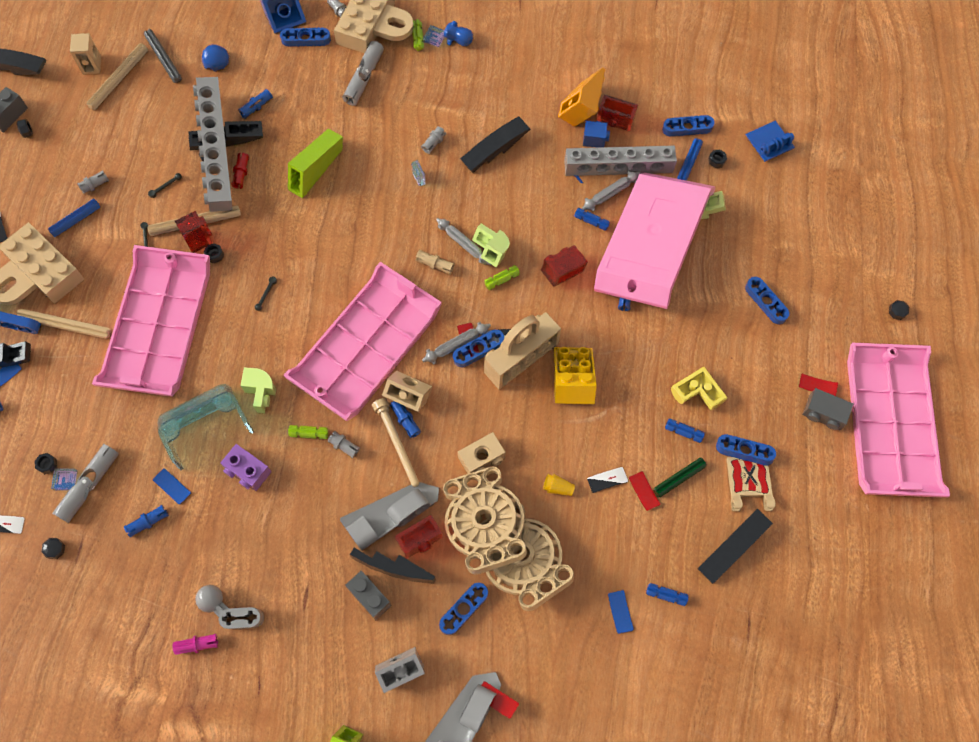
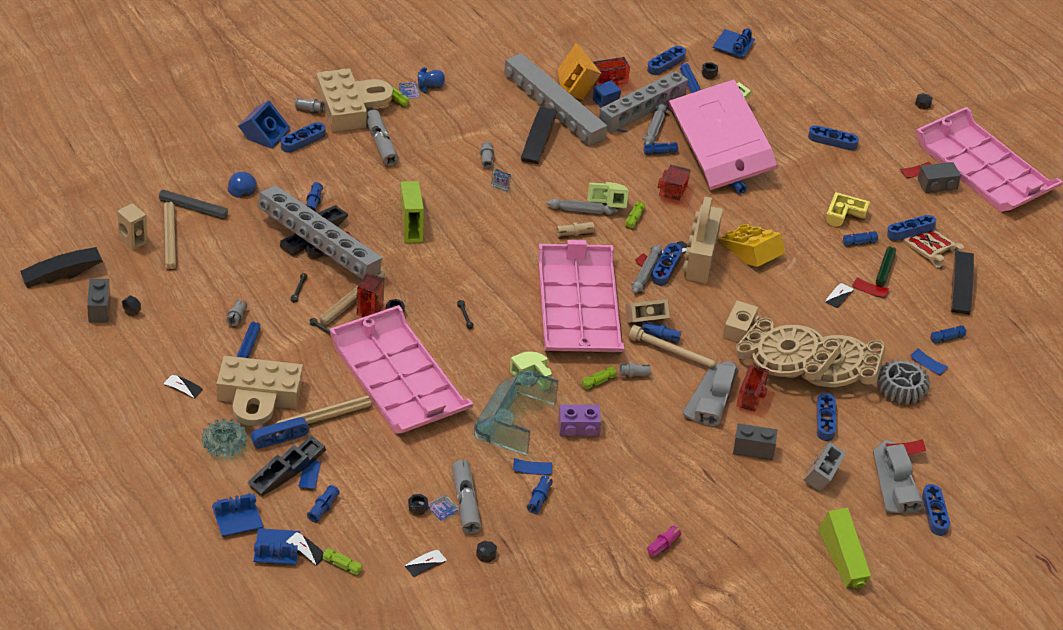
camera: 40 degrees left, 25 degrees down
(210, 599) = (674, 511): light grey beam -> none
(400, 568) = (760, 415): black slope -> none
(544, 116) = (553, 96): none -> light grey brick
(557, 485) = (811, 312): yellow cone -> none
(578, 624) = (903, 382): none -> light grey gear

